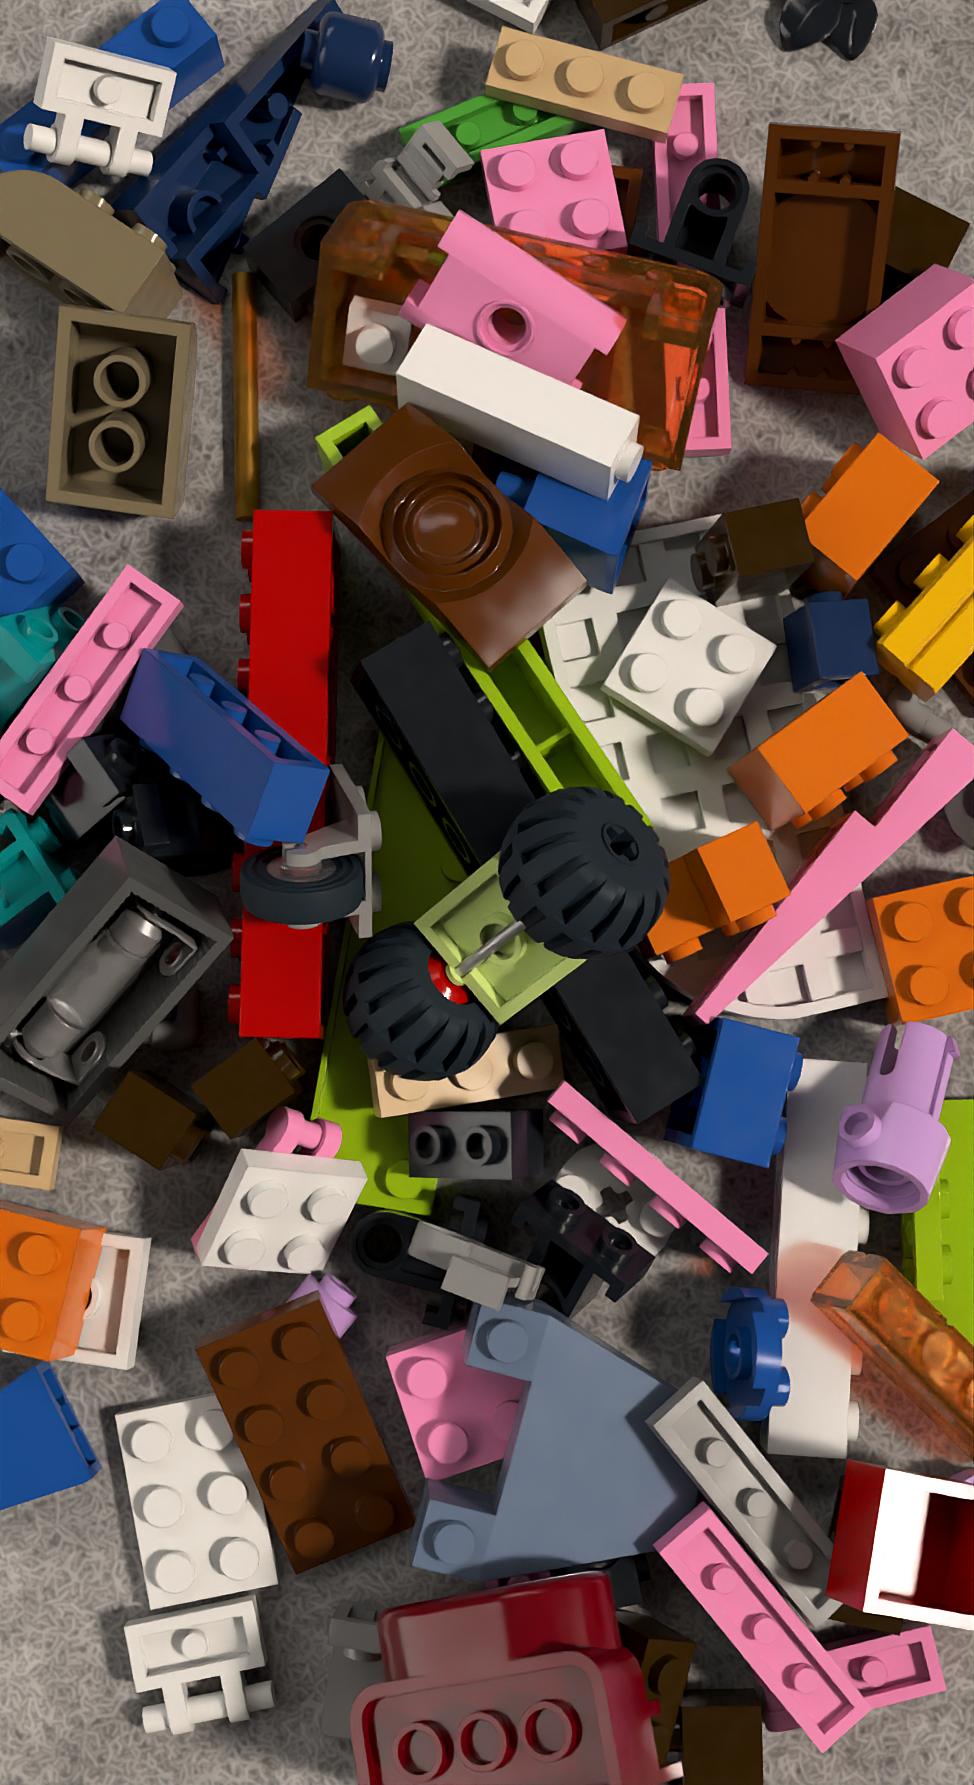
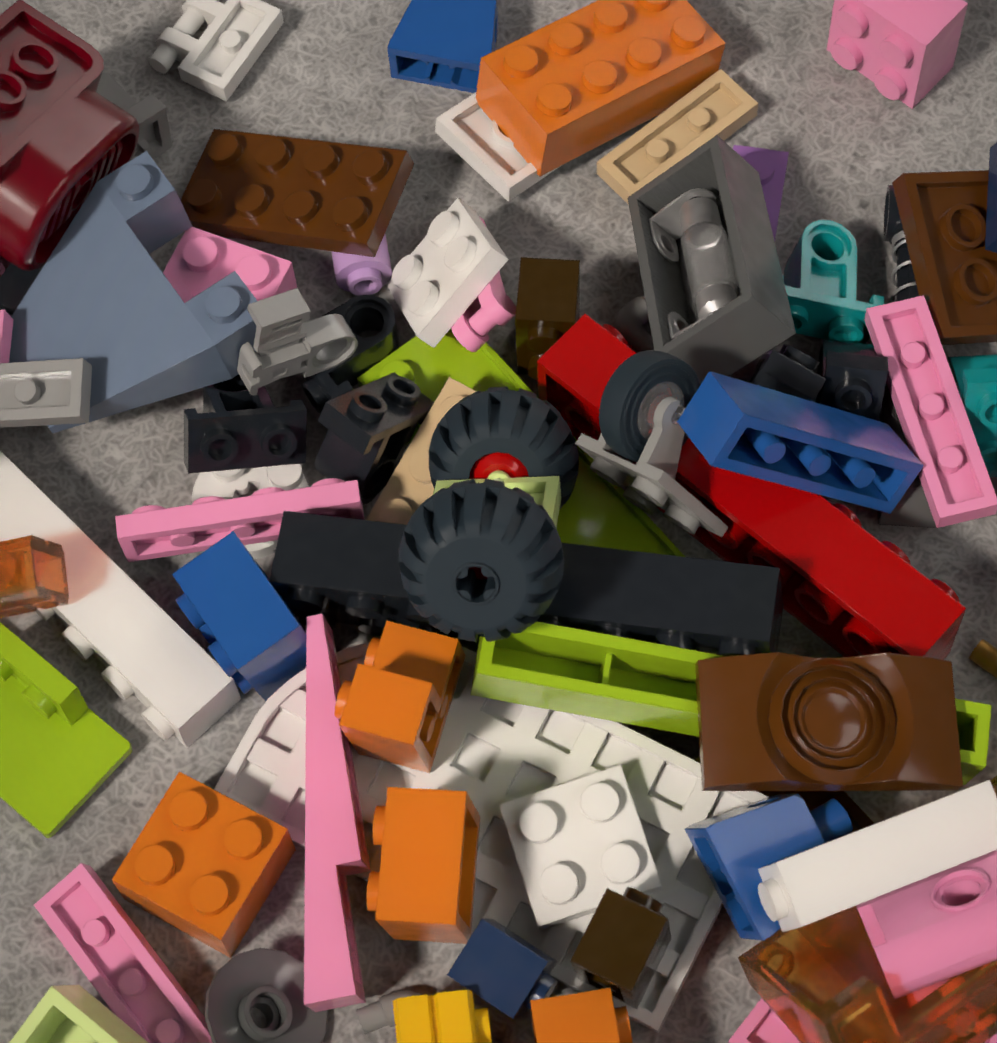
camera: 135 degrees right, 20 degrees down
(155, 1120) = (588, 230): dark brown brick -> none
(194, 1503) = (315, 99): white plate -> none
(749, 1353) = (81, 500): blue plate -> none
(894, 1140) = (107, 676): lavender piece -> none

